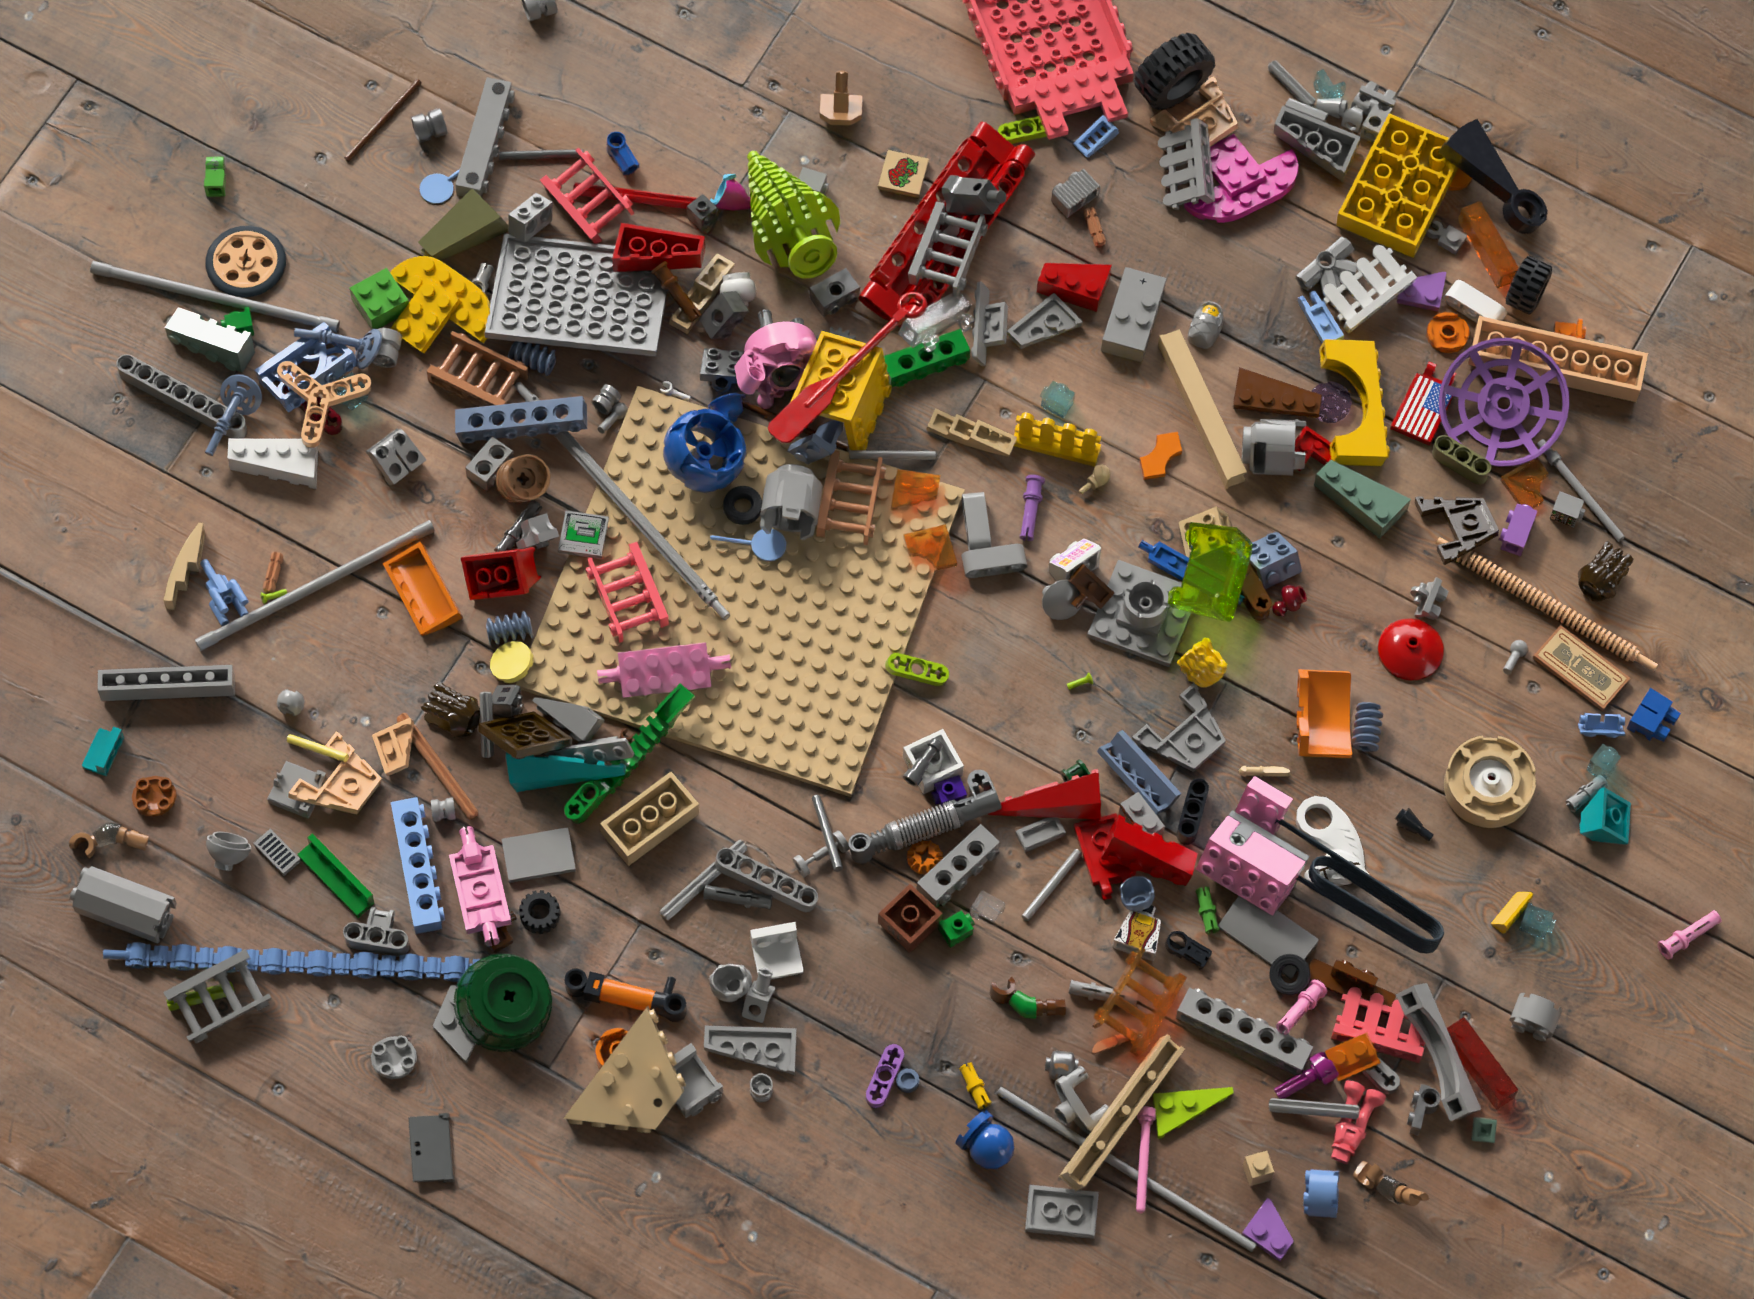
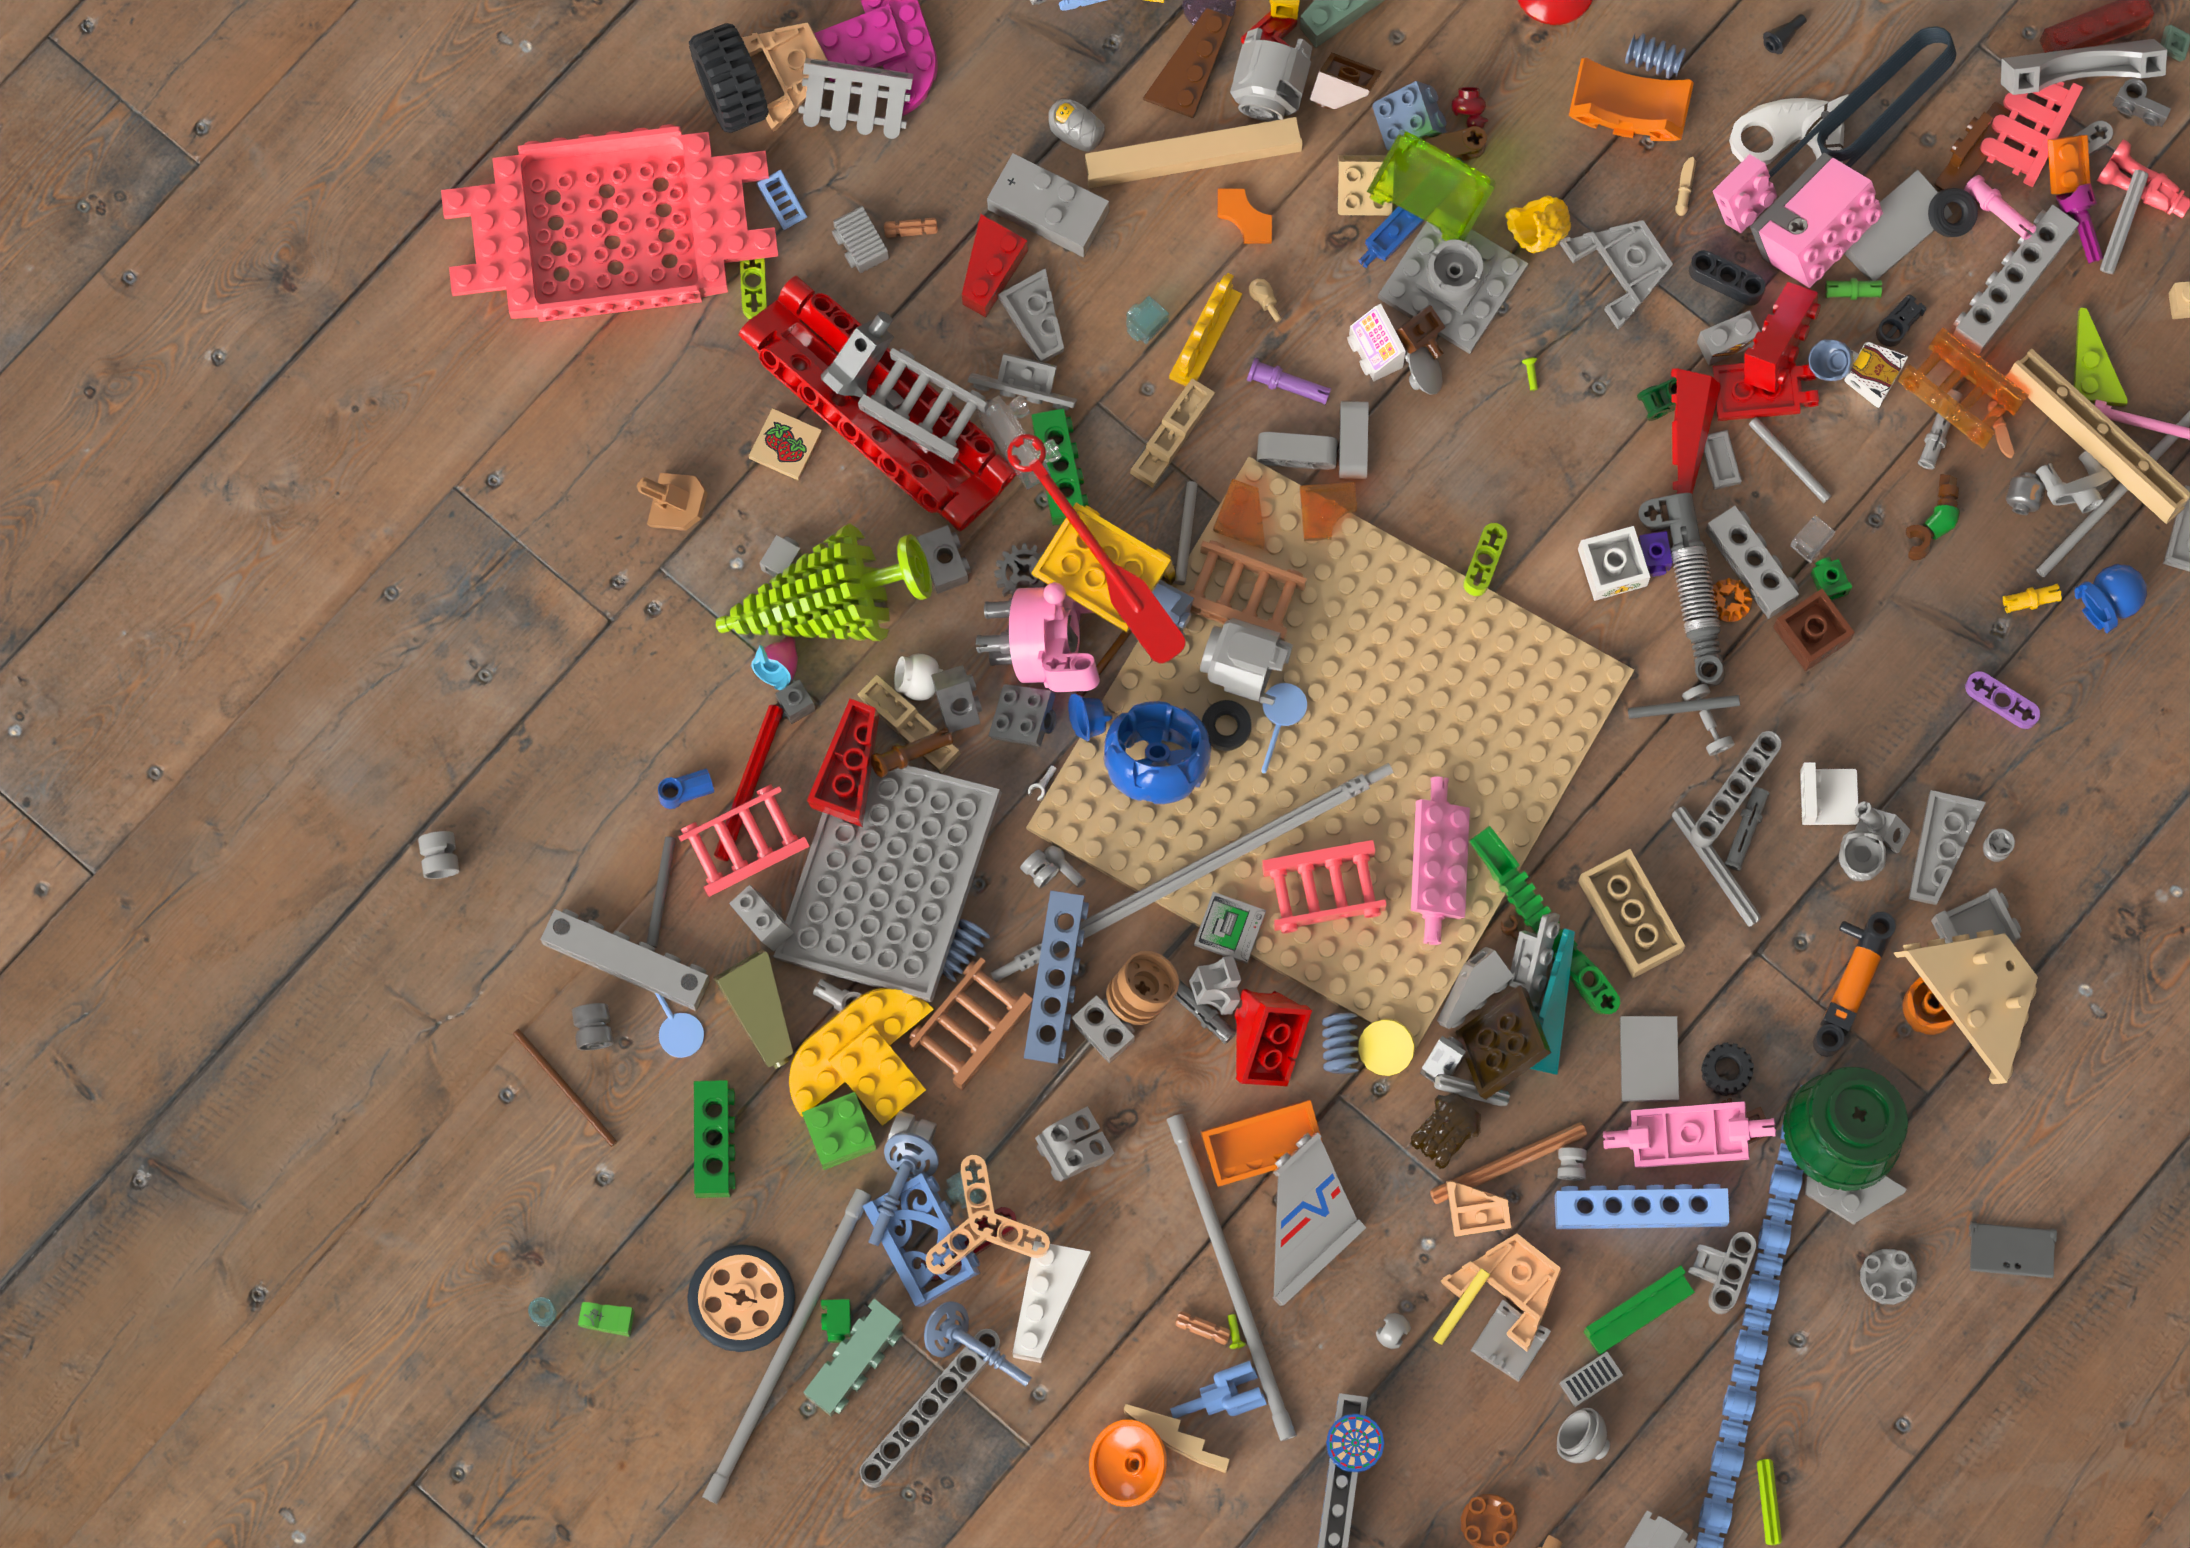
camera: 75 degrees left, 10 degrees up
(158, 533) = (1115, 1458): none -> orange dish
(194, 679) = (1355, 1443): none -> blue tile
(210, 134) = (535, 1307): none -> clear light blue bush
(219, 973) = (1754, 1471): light grey fence -> none
(365, 210) = (705, 1095): none -> green brick
(368, 629) = (1311, 1217): none -> light grey piece
(907, 1080) = (2012, 674): sand blue tile -> none
(914, 775) = (1629, 574): dark grey piece -> none
(1142, 771) = (1664, 325): sand blue fence -> none
(1288, 503) = (1342, 82): none -> slope

